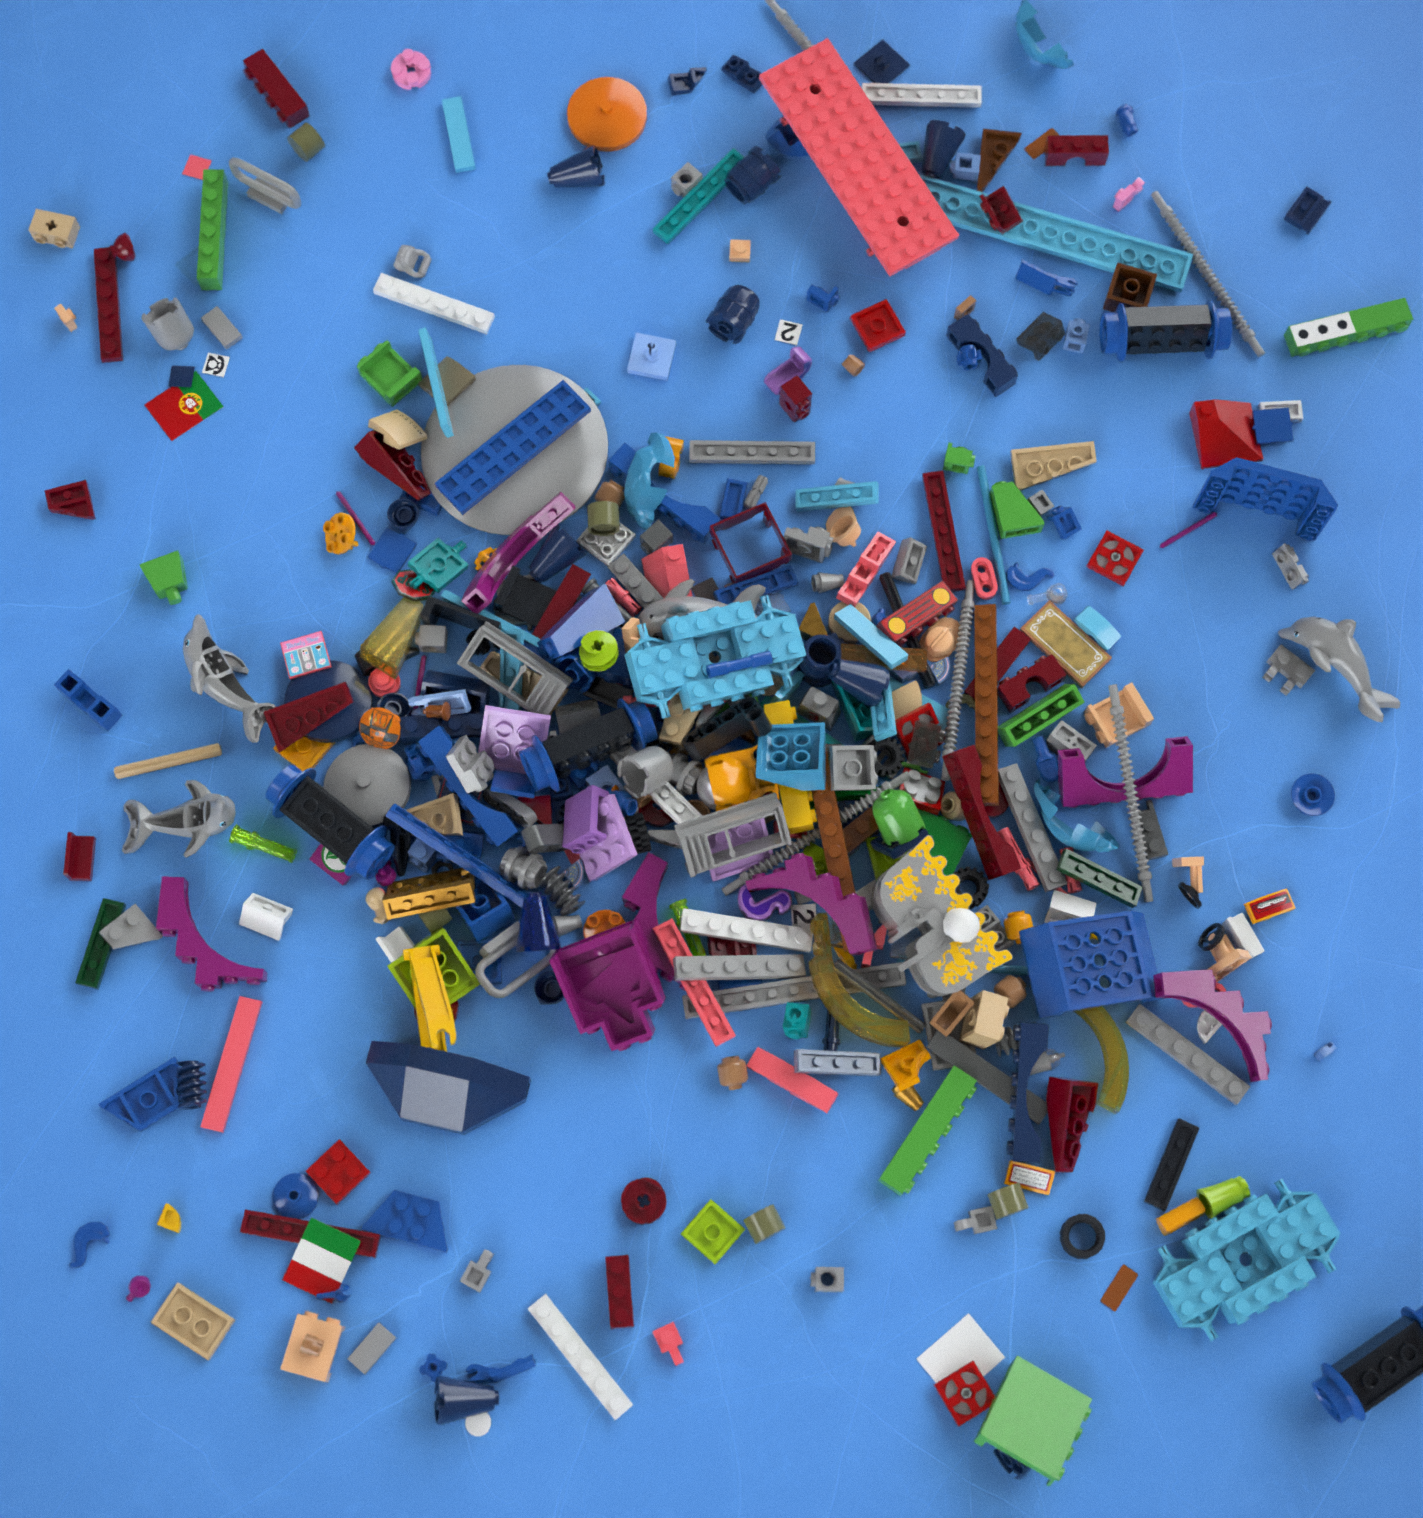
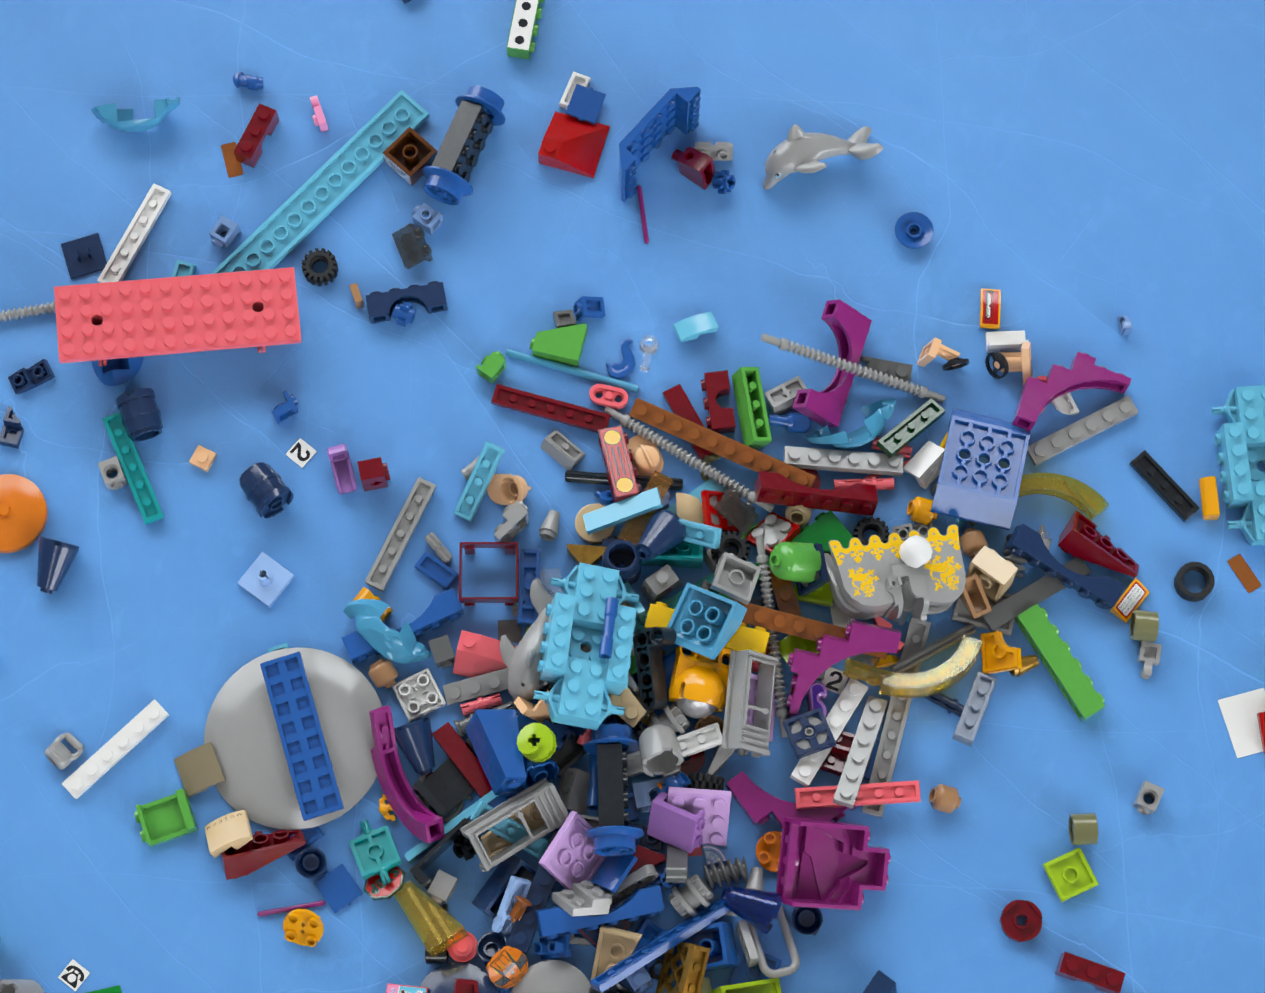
camera: 65 degrees left, 0 degrees up
(221, 327) = (40, 954): light grey tile -> none
(420, 678) = (475, 916): magenta axle -> none
(436, 383) = (201, 778): medium azure tile -> none
(603, 518) = (406, 687): olive piece -> none
(669, 1340) = (1144, 951): coral plate -> none
(676, 906) = (833, 780): clear neon green pin -> none
(732, 907) = (809, 733): none -> dark blue piece
(797, 1020) = (924, 725): teal brick -> none
(797, 1084) = (968, 755): coral slope -> none
(853, 365) = (361, 412): medium nougat hose -> none
(866, 569) = (555, 488): coral slope -> none
(877, 325) = (335, 375): red plate -> none
(940, 147) = (196, 245): dark blue cone -> none
(940, 670) = (672, 469): medium blue tile -> none
(979, 254) = (319, 278): none -> black tyre
(994, 151) = (219, 201): reddish brown wing -> none
(1001, 210) = (283, 222): dark red bracket -> none
(1044, 281) = (364, 220): blue arm -> none
(1045, 463) = (529, 300): tan wing -> none
(1069, 644) = (695, 357): pearl gold tile -> none
(1115, 558) = (641, 283): red piece -> none
(1135, 712) = (770, 356): light nougat panel -> none
(1223, 1195) = (1206, 458): lime plant -> none
(1247, 334) = (350, 91): light grey hose -> none
(1262, 588) = (723, 181): none -> blue gear
(1263, 548) = (695, 166): none -> torso
(1290, 666) = (798, 193): light grey plate -> none

